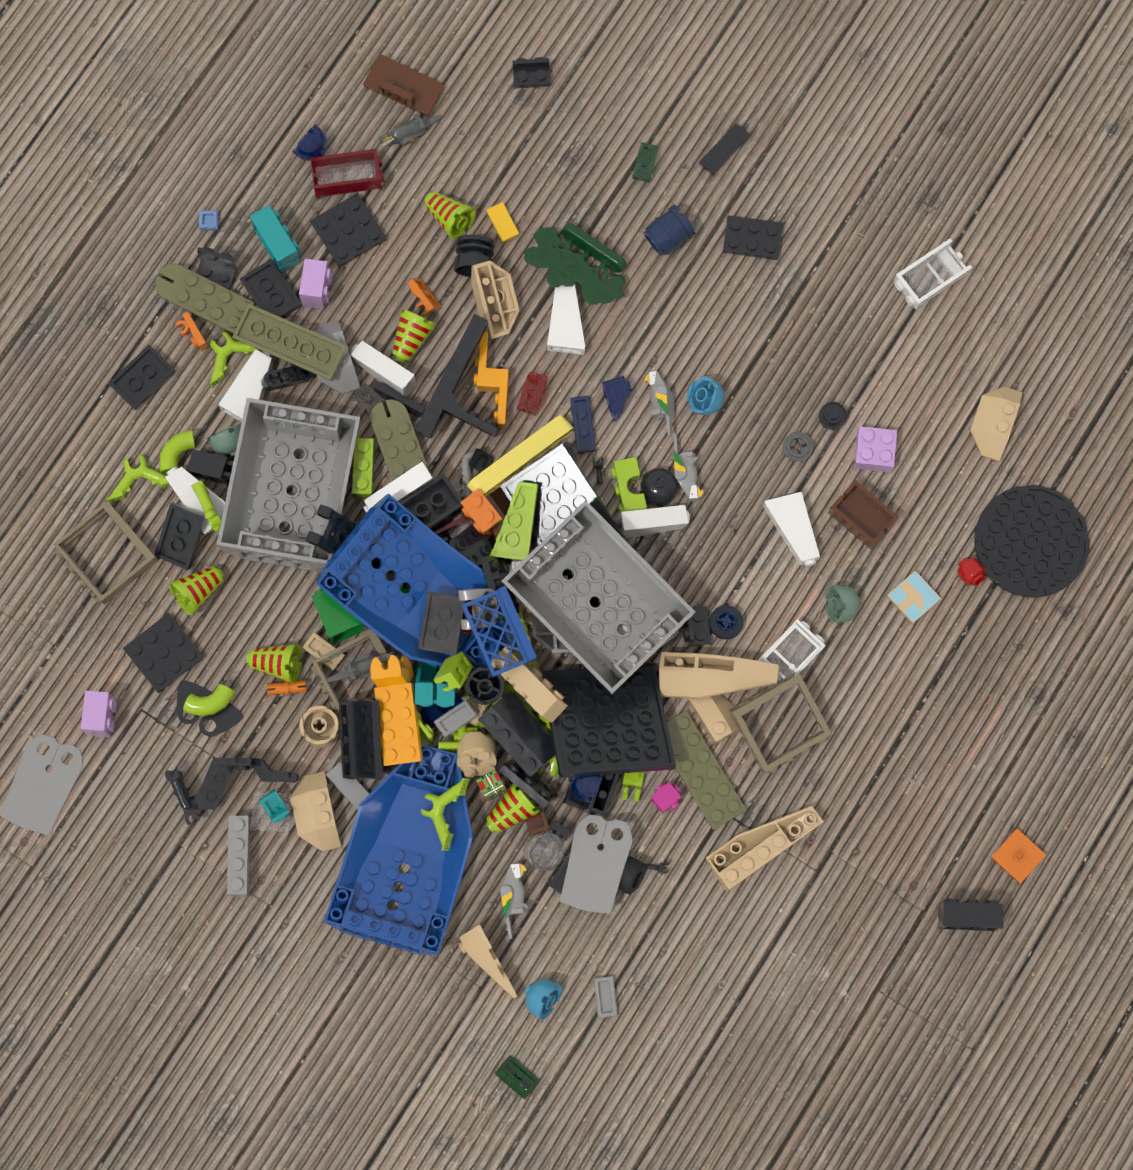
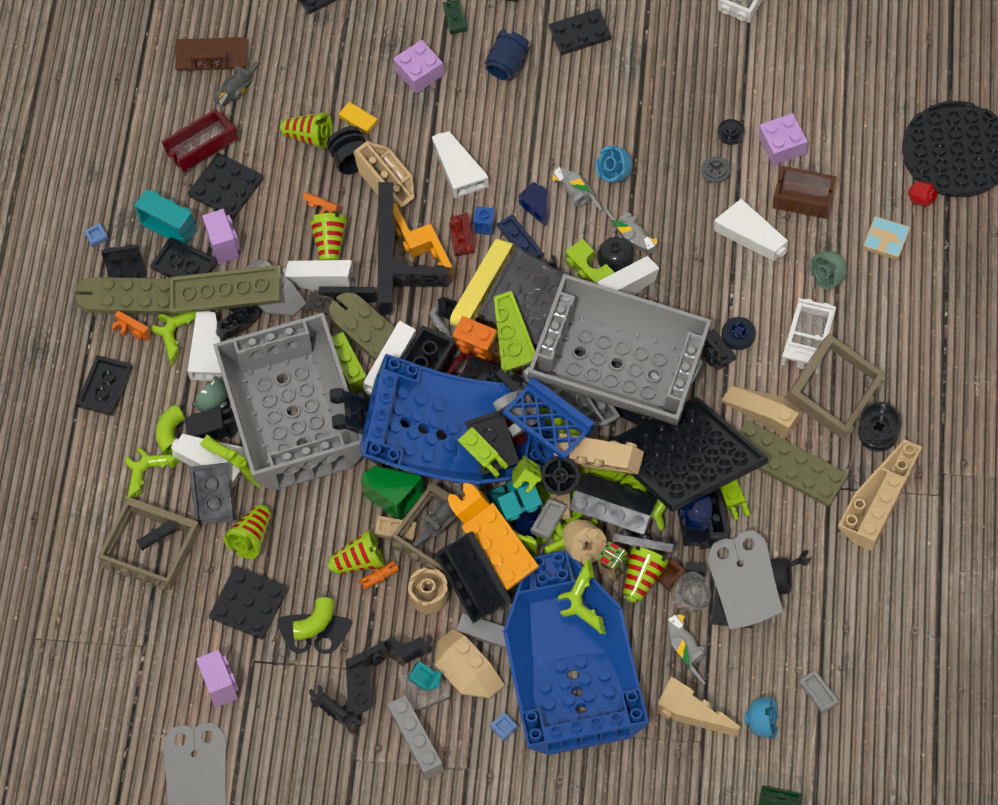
camera: 20 degrees left, 15 degrees down
(111, 552) = (156, 535): none -> black pin
(311, 144) = (156, 131): clear blue cylinder -> none
(320, 884) = (503, 726): none -> medium blue tile
(427, 627) = (481, 450): none -> lime hinge
(559, 390) = (484, 220): none -> blue brick
(571, 266) = (439, 120): dark green plant -> none
(584, 199) = (418, 66): none -> lavender brick
(666, 797) = (772, 498): dark pink brick -> none
(711, 675) = (752, 375): tan wedge -> none
(806, 776) = (880, 417): none -> black wheel
(995, 421) = (870, 73): tan wedge -> none

